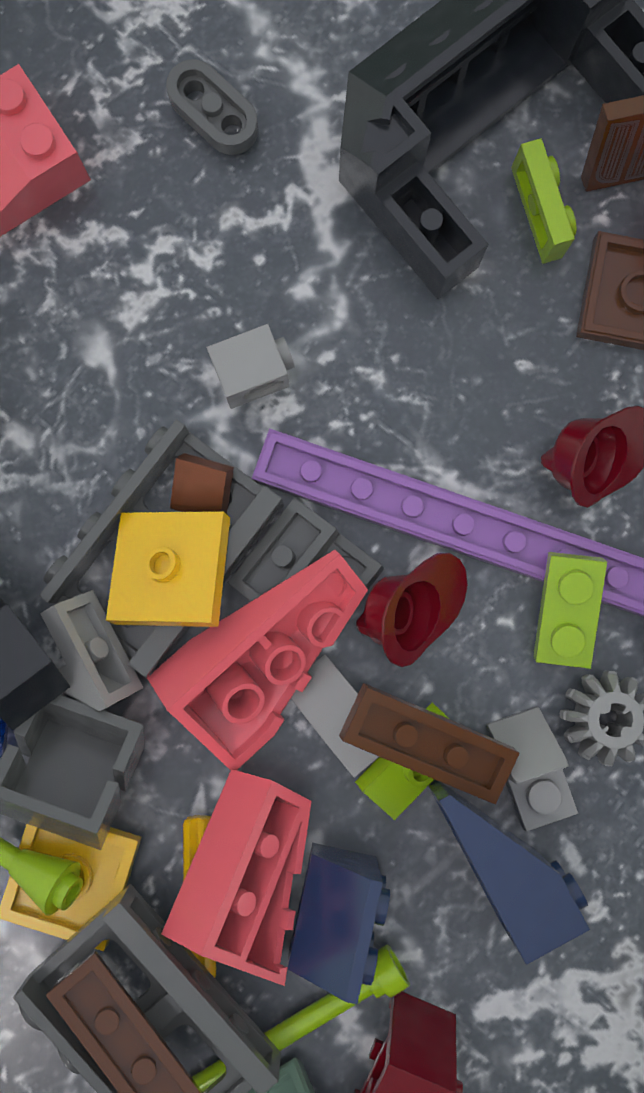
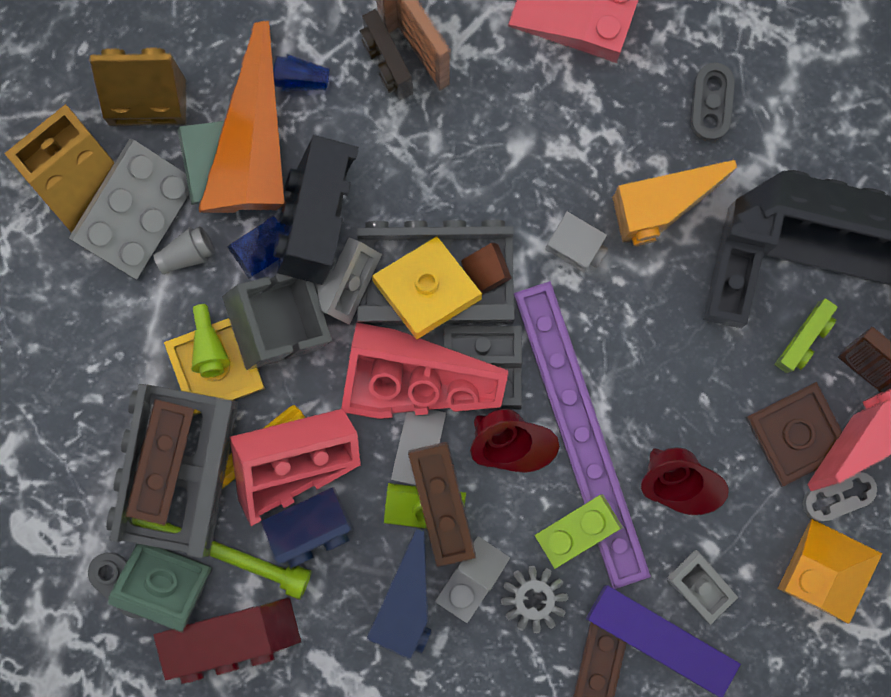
camera: 55 degrees right, 0 degrees up
(271, 249) = (654, 204): none -> light orange slope

